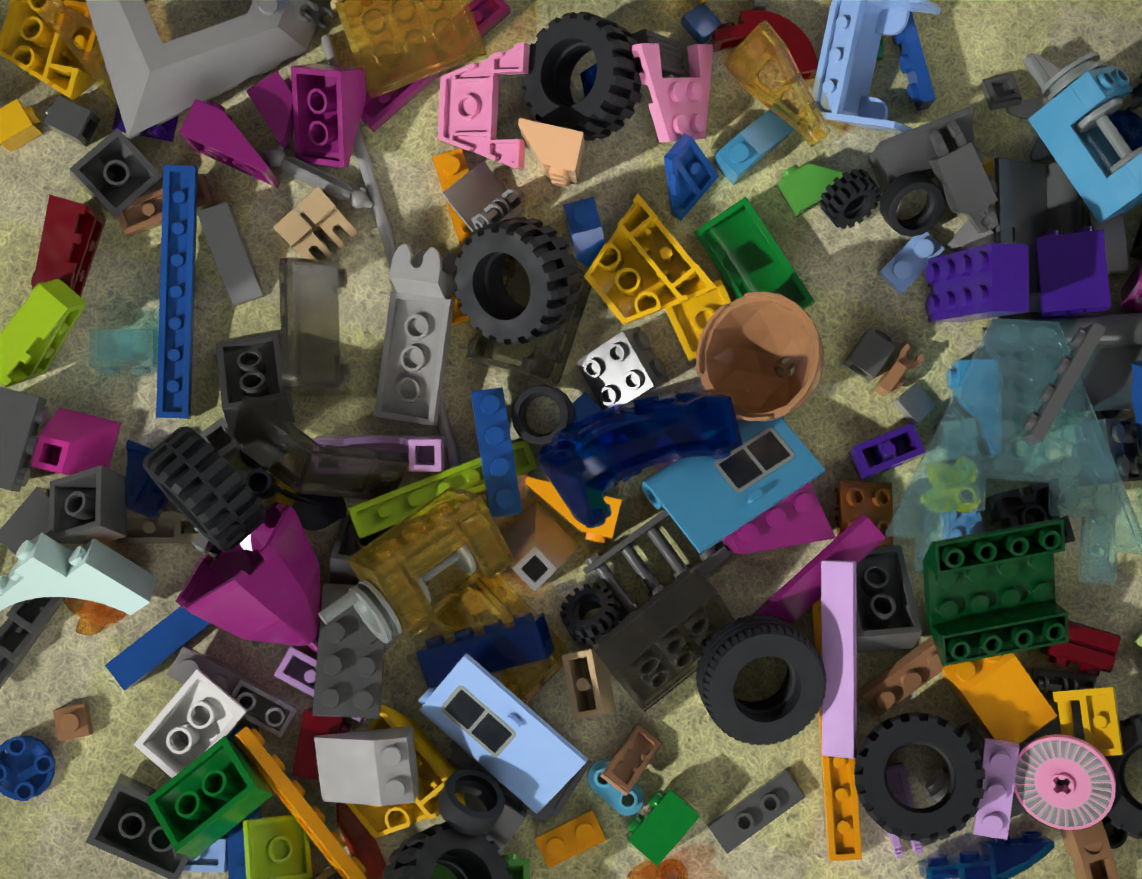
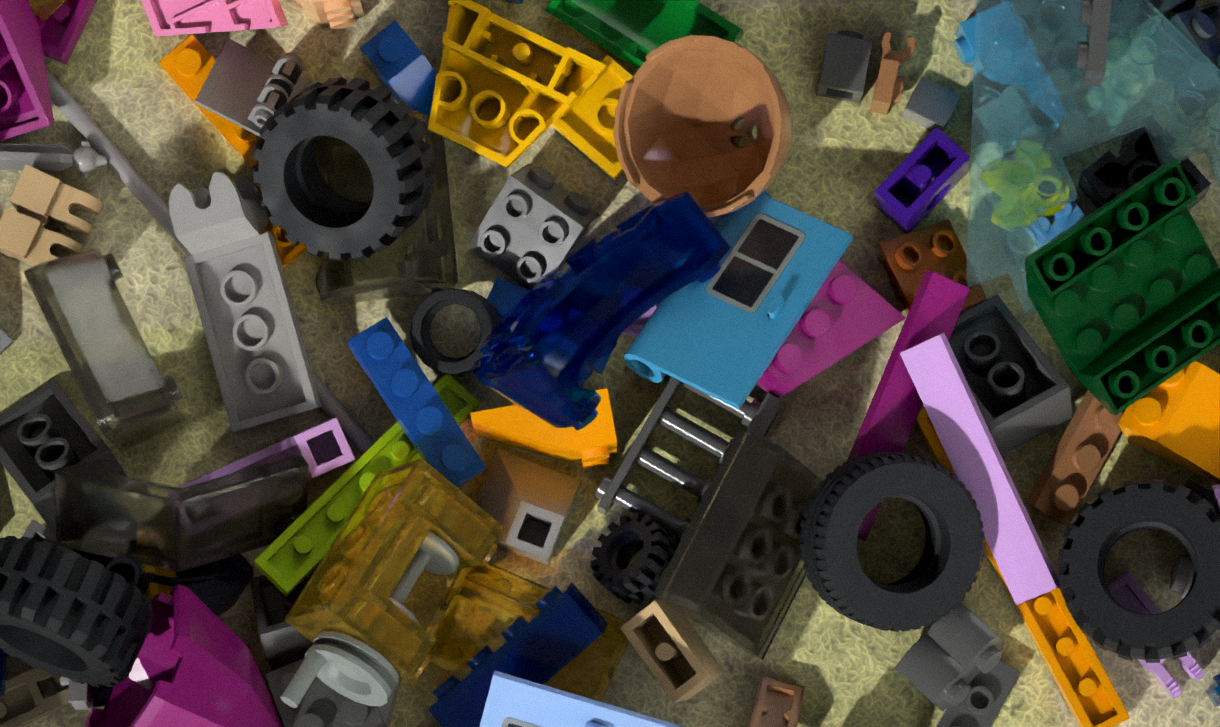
camera: 25 degrees left, 5 degrees down
(763, 769) = (951, 656): none -> dark grey brick

